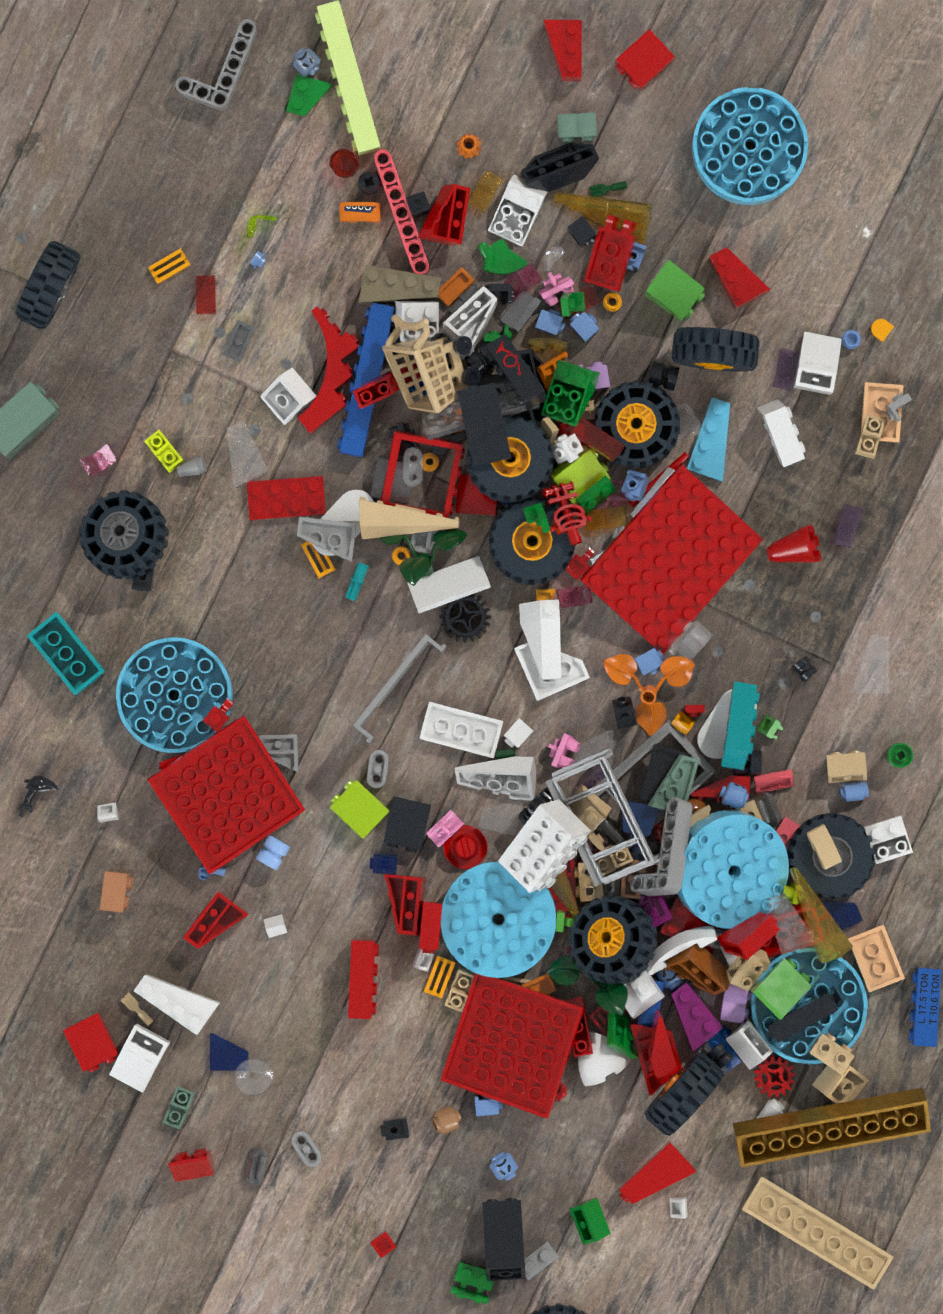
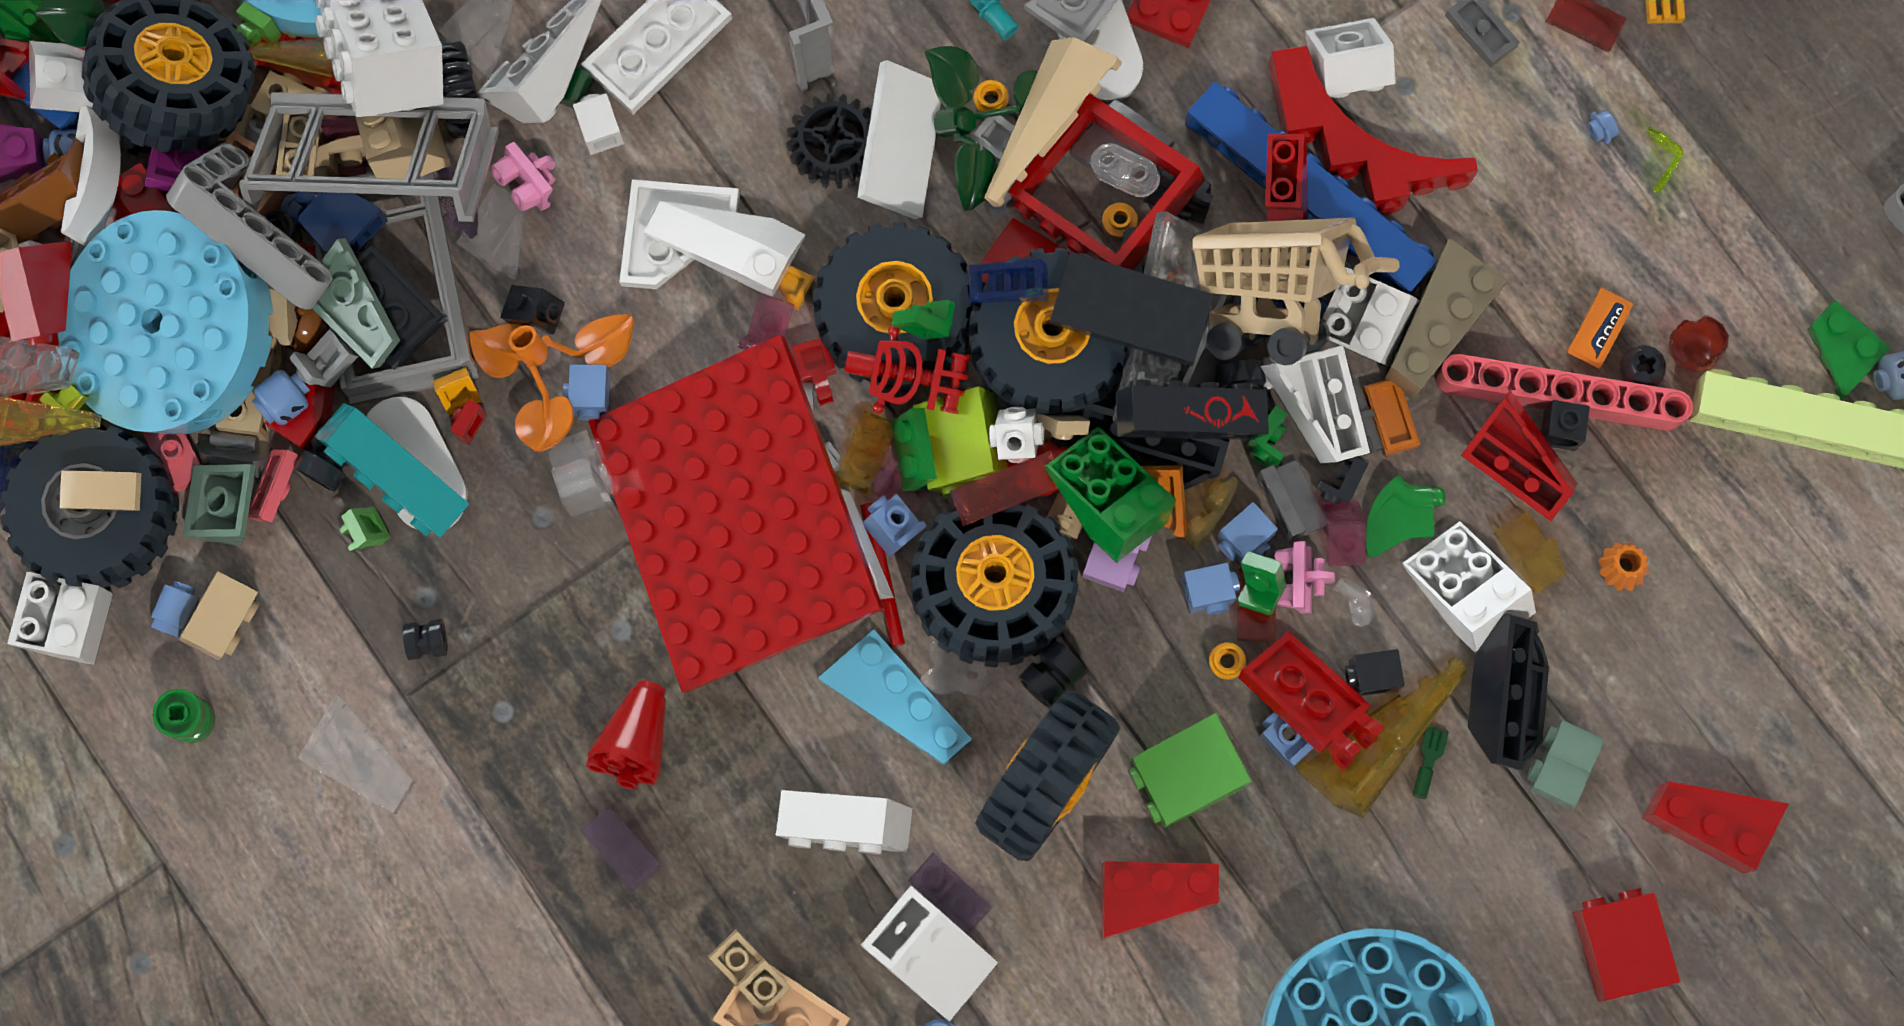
camera: 120 degrees right, 10 degrees down
(505, 504) = (1024, 294): none -> clear blue slope
(706, 786) = (325, 360): none -> light grey bracket
(795, 798) = (219, 503): none -> sand green slope

